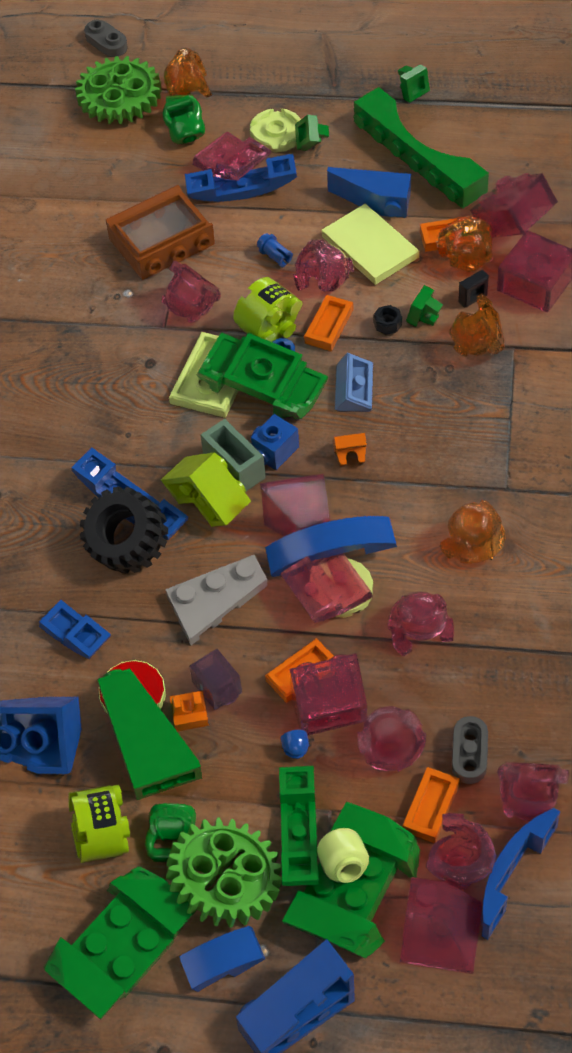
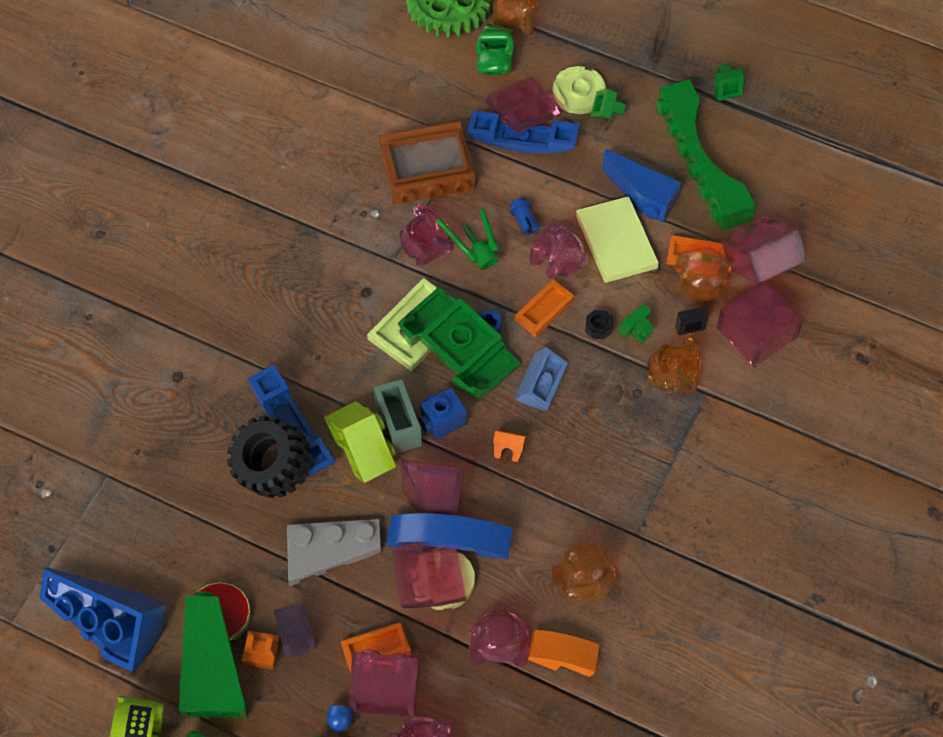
camera: 15 degrees right, 5 degrees up
(73, 630) = (192, 535): blue slope -> none
(230, 286) = (483, 253): none -> green plant
(267, 310) = (488, 281): lime brick -> none
(479, 610) = (564, 650): none -> orange slope

